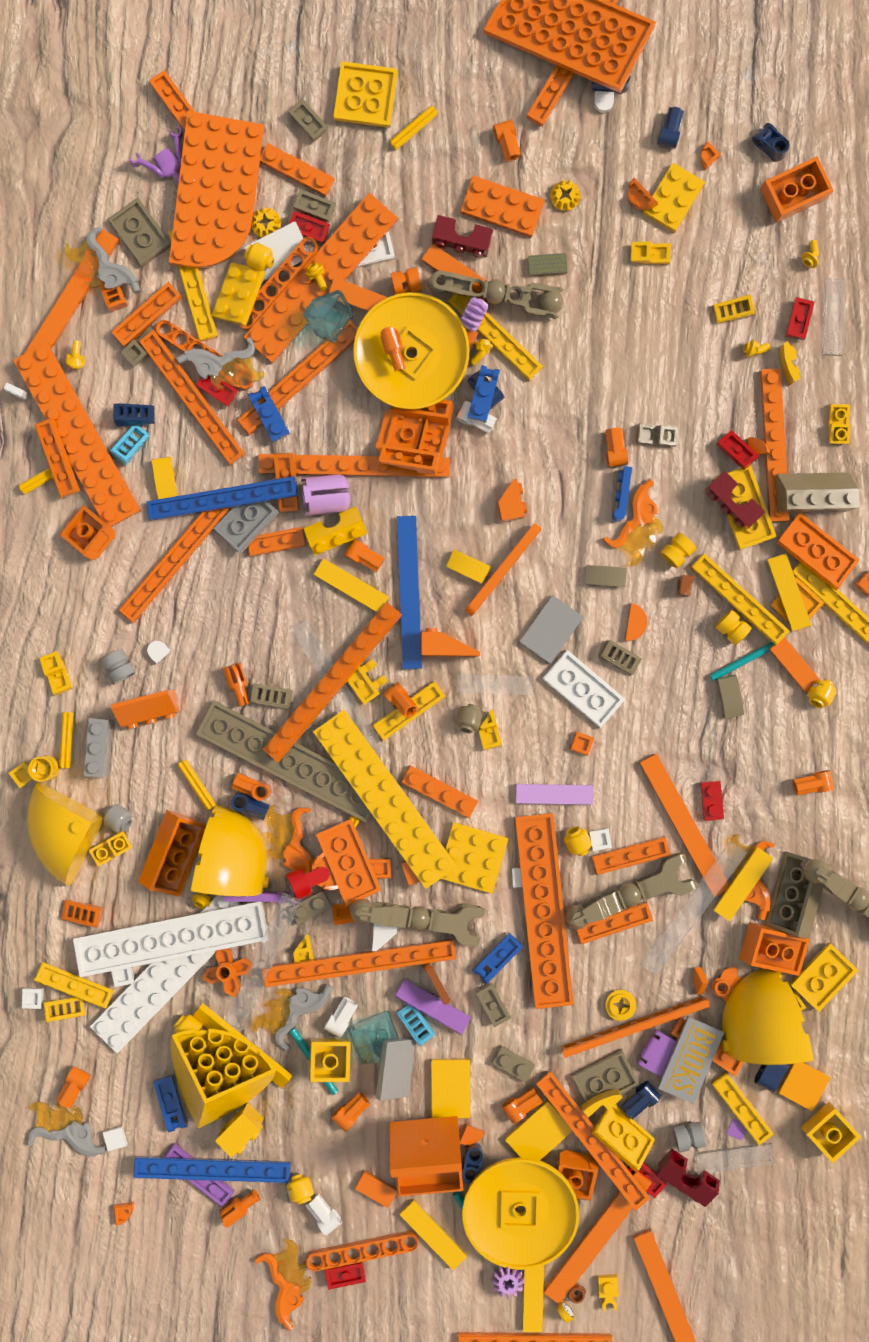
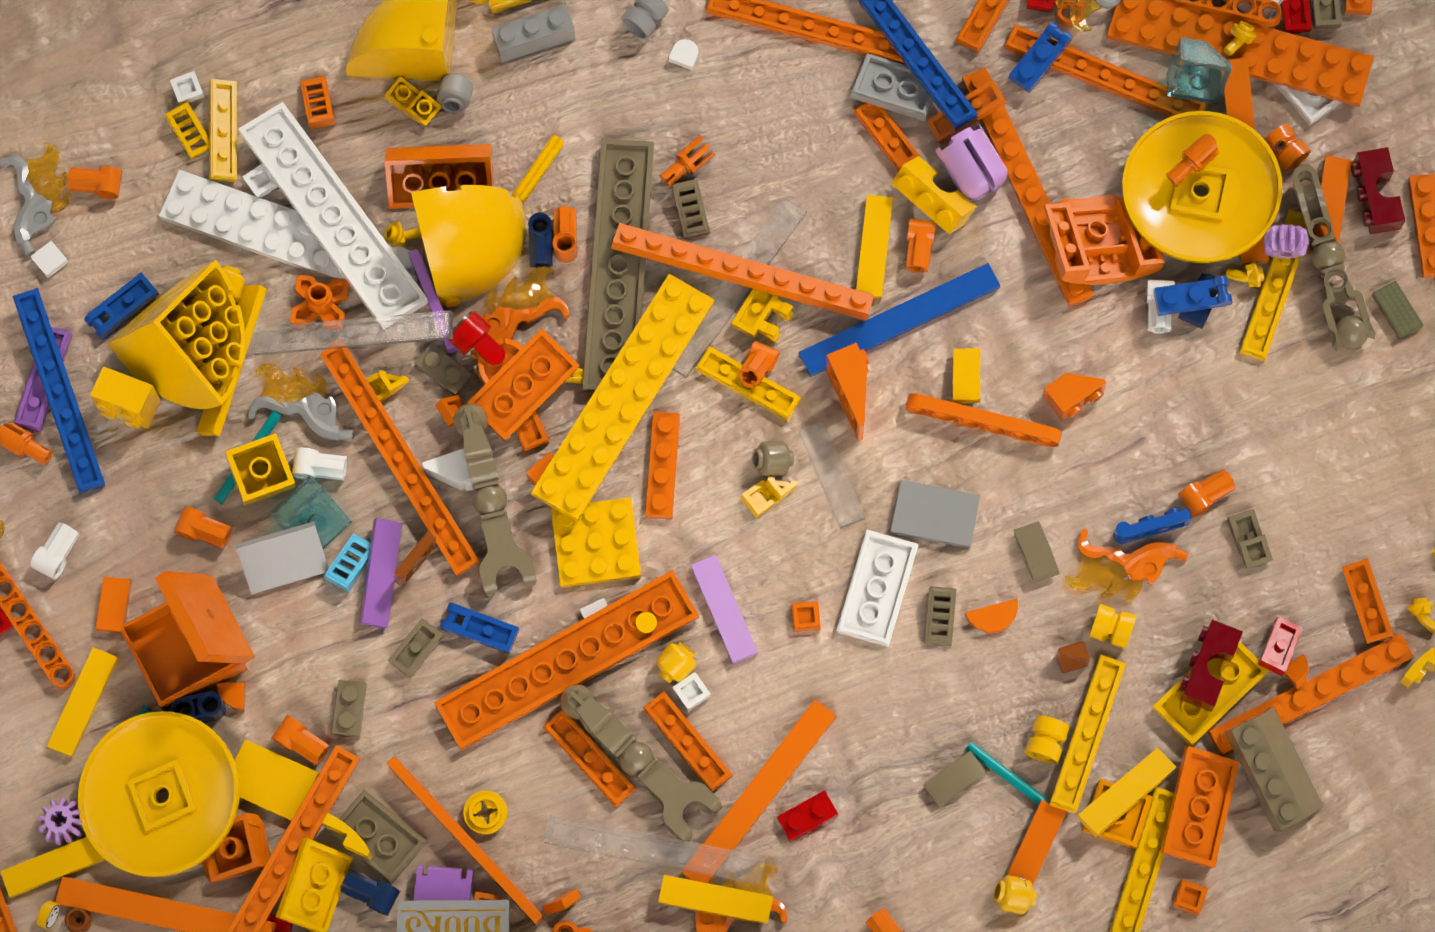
camera: 70 degrees right, 15 degrees down
(146, 709) = (607, 66): orange slope -> none
(300, 1189) = (76, 507): yellow head -> none
(450, 1087) = (286, 642): yellow tile -> none
(543, 849) = (646, 622): none -> yellow piece
(732, 379) = (1368, 601): none -> orange plate
(839, 423) = (1380, 765): yellow slope -> none

